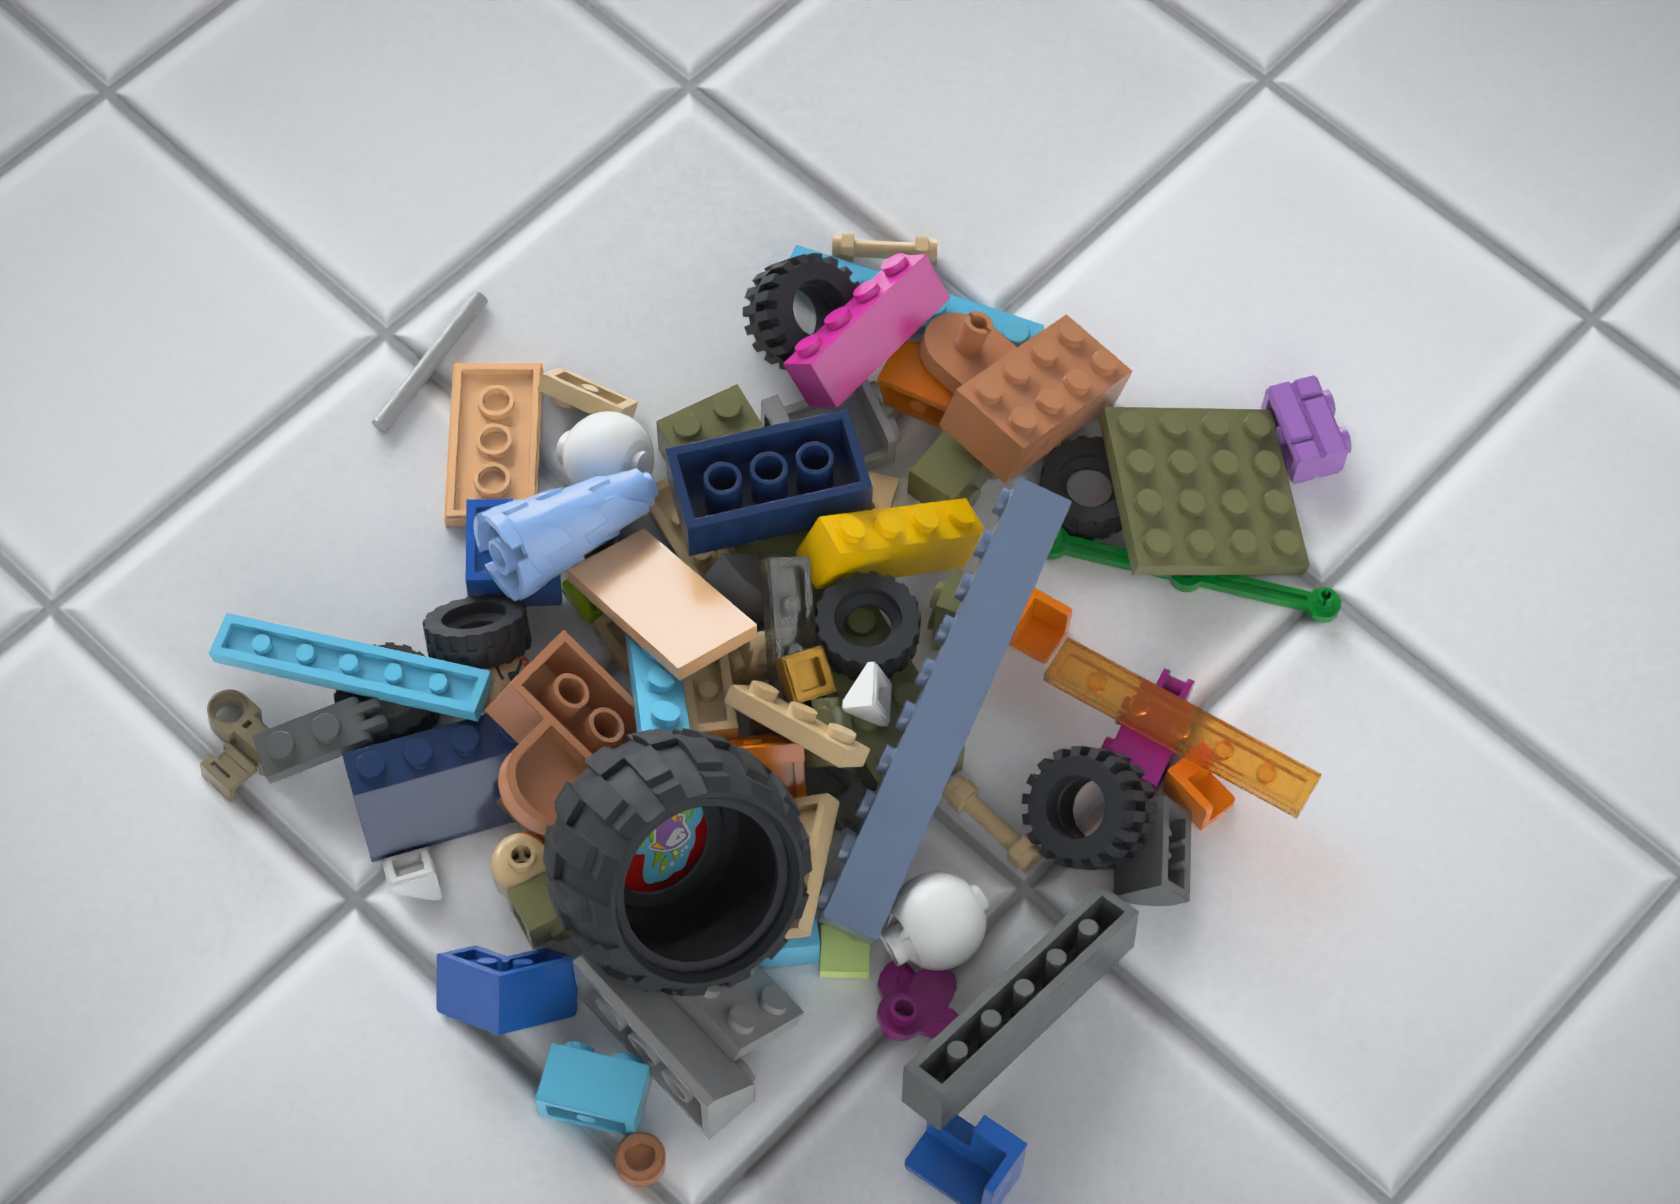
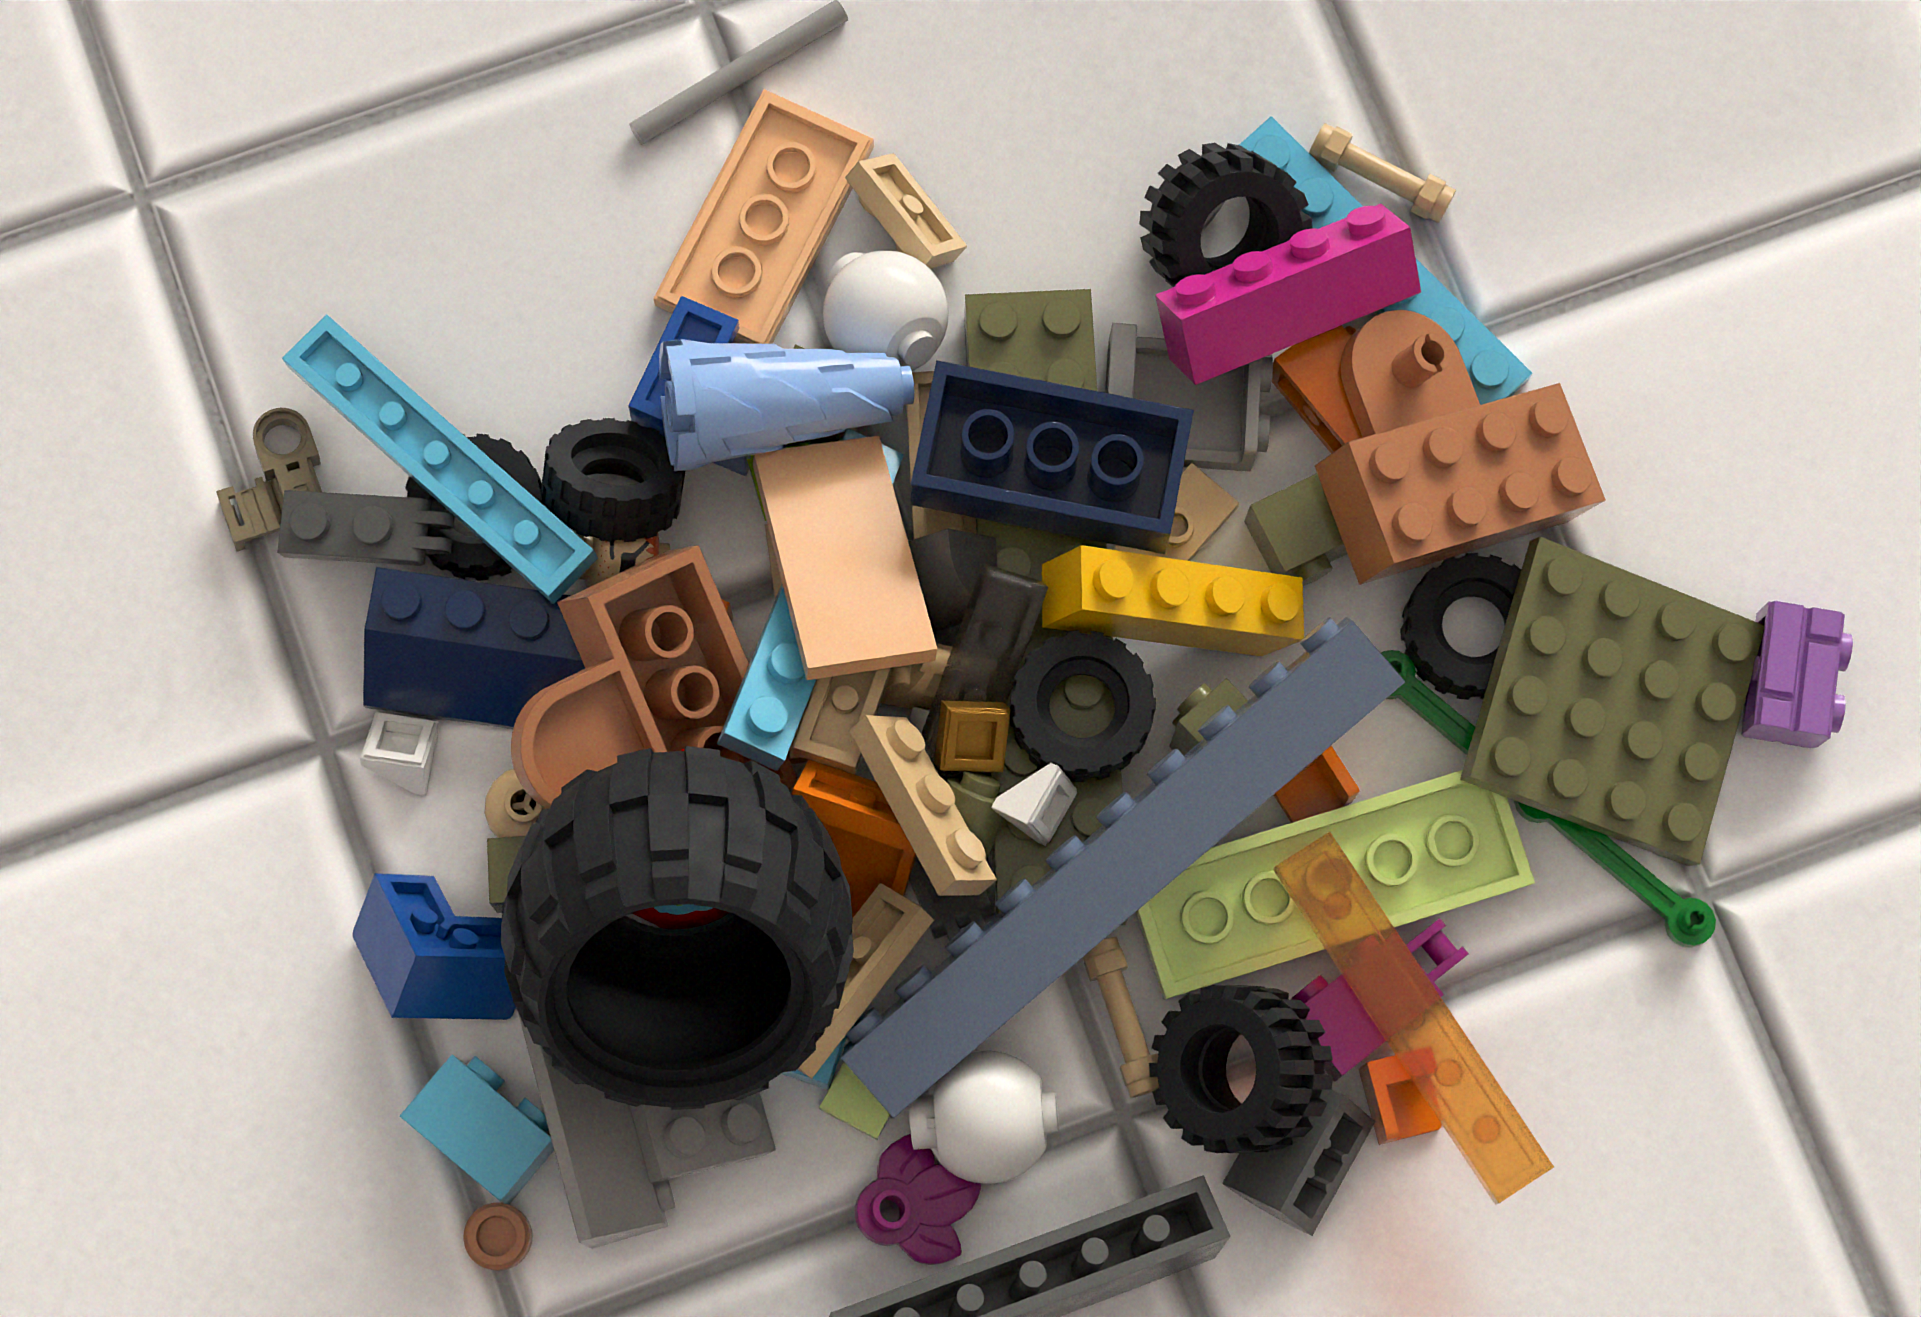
camera: 25 degrees right, 15 degrees up
(1024, 719) = (1412, 848): none -> yellowish green plate

